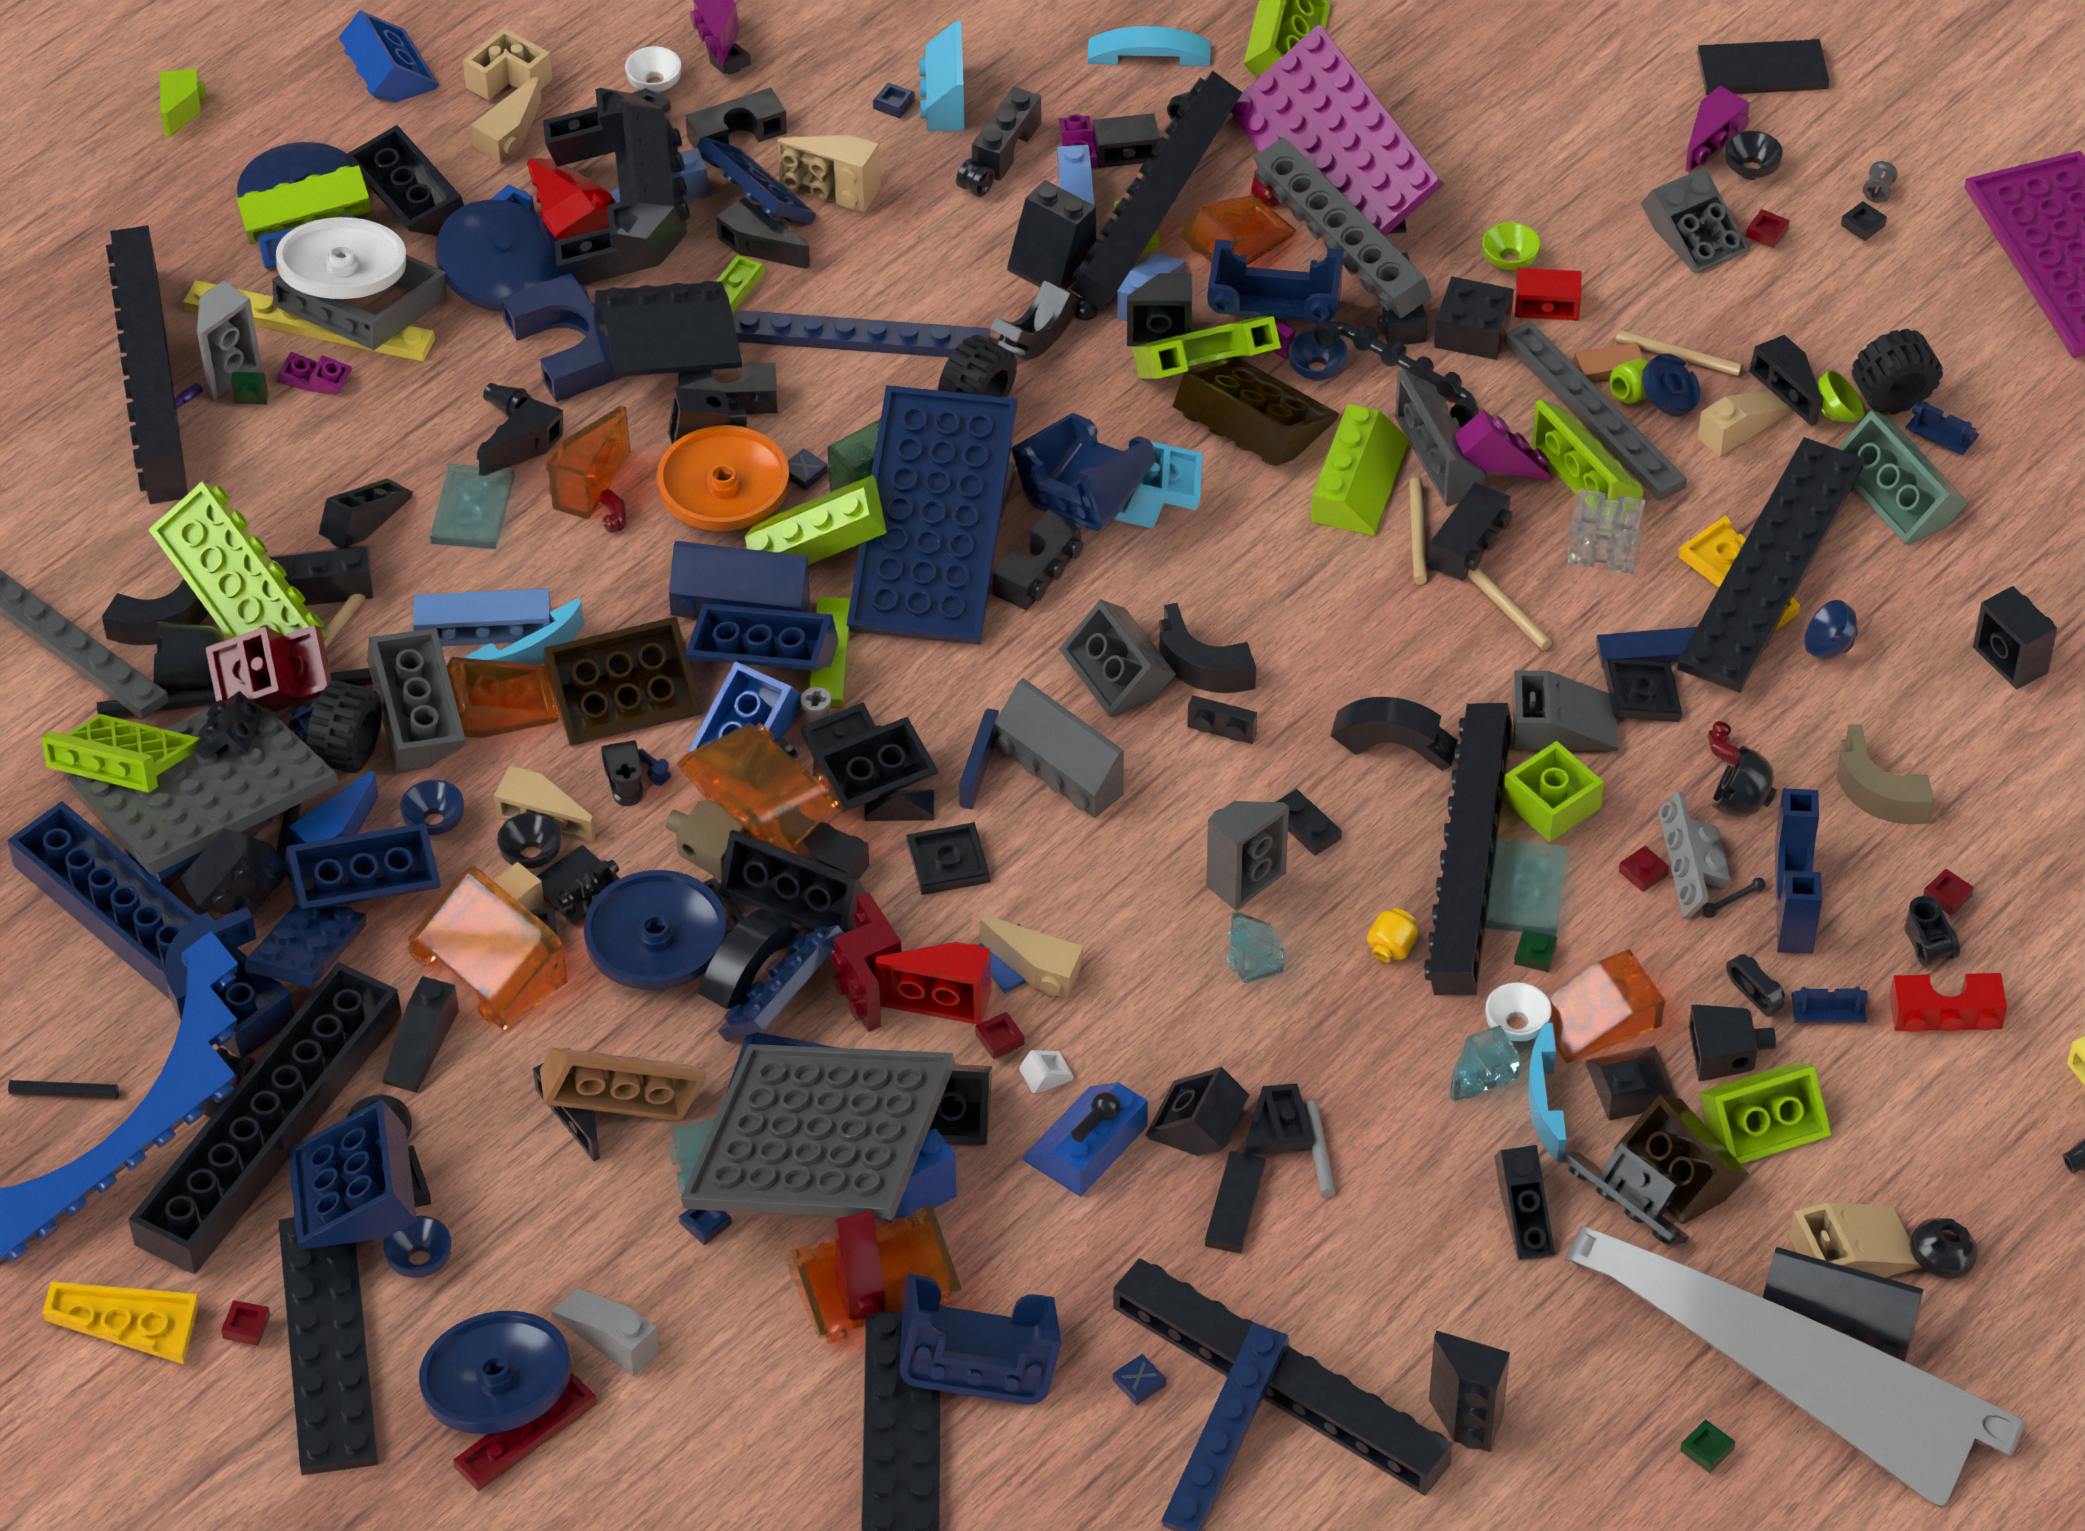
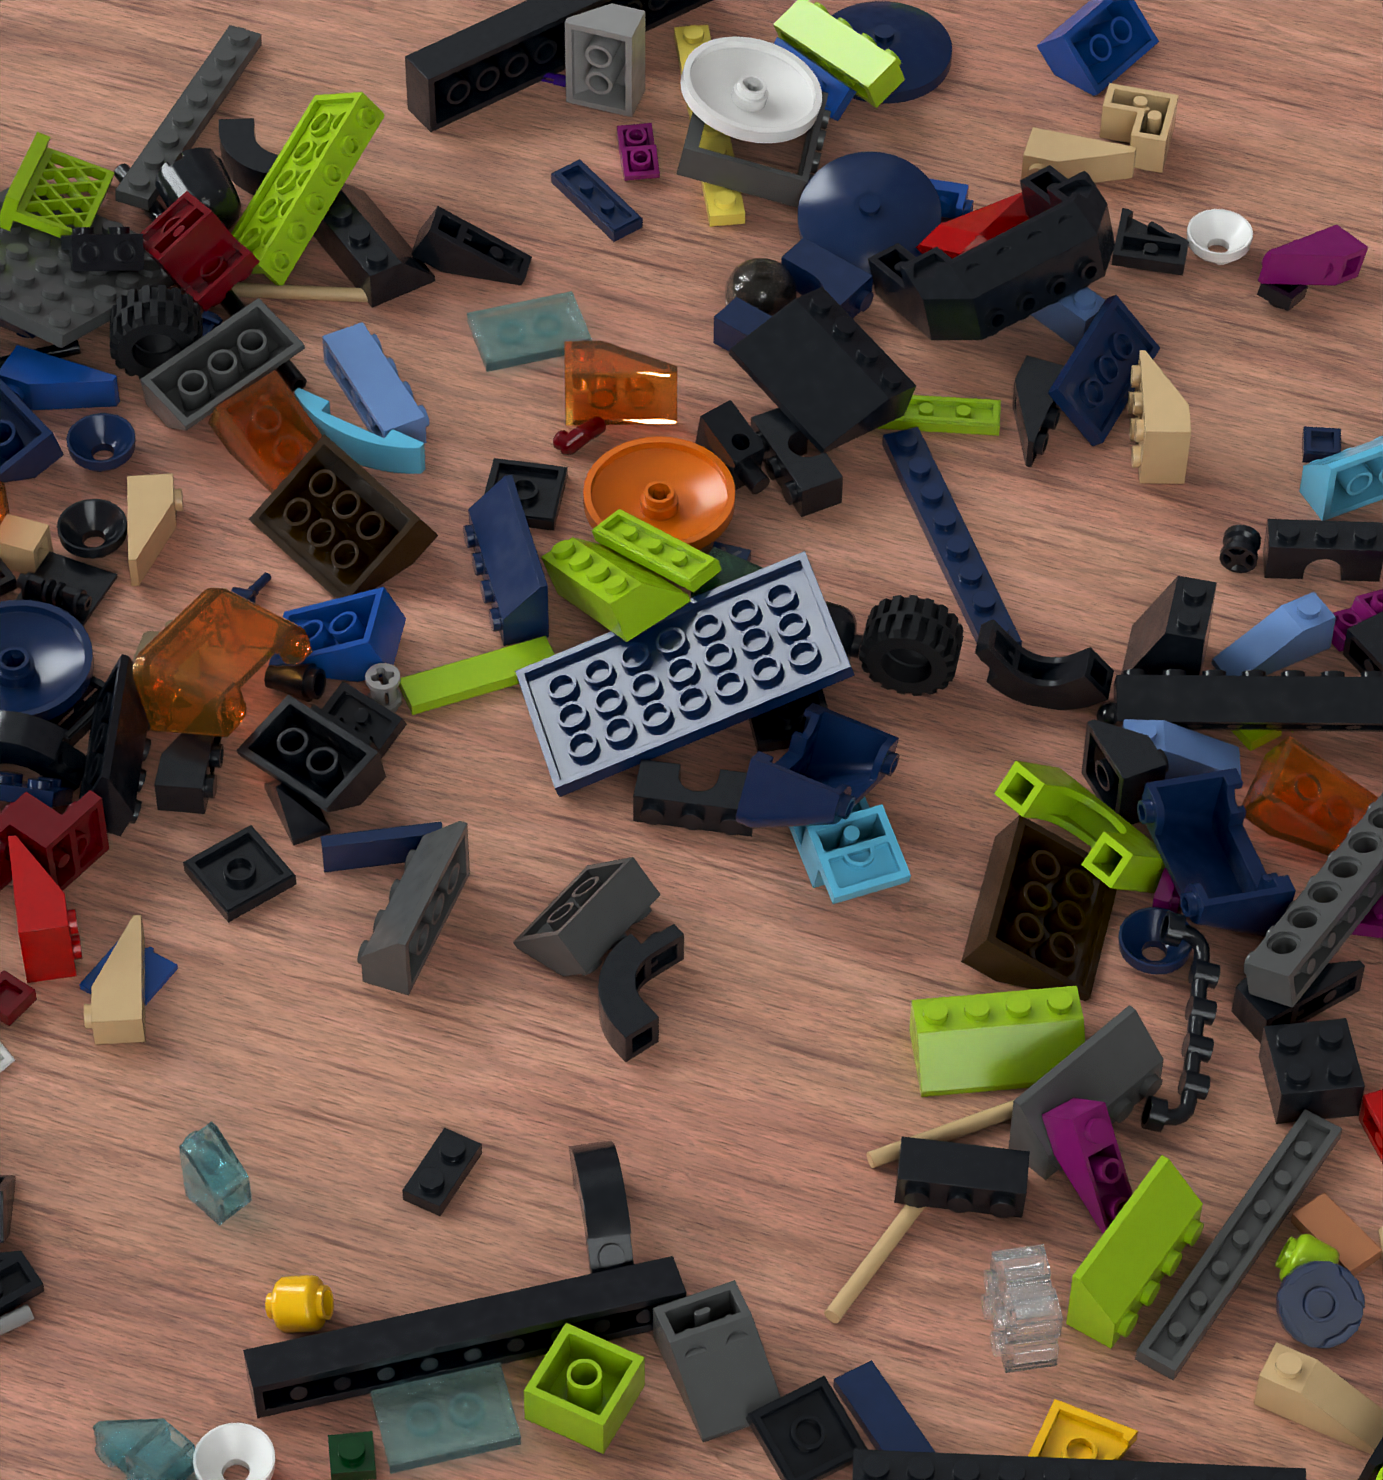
camera: 65 degrees right, 0 degrees up
(249, 388) = (583, 113): dark green plate -> none
(349, 417) = (596, 200): none -> dark blue tile
(406, 181) = (923, 110): black slope -> none
(505, 397) = (682, 303): black cone -> none
(524, 347) = (761, 284): none -> clear smoke cylinder
(525, 435) = (626, 323): black slope -> none
(623, 771) = (228, 565): black piece -> none
(644, 566) = (538, 488): none -> black tile
(756, 113) = (1214, 341): black arch -> none
(763, 637) = (433, 605): dark blue slope -> none
(803, 484) = (656, 550): none -> lime tile
(1222, 719) = (545, 1053): black plate -> none
(1246, 849) = (324, 1110): dark grey slope -> none

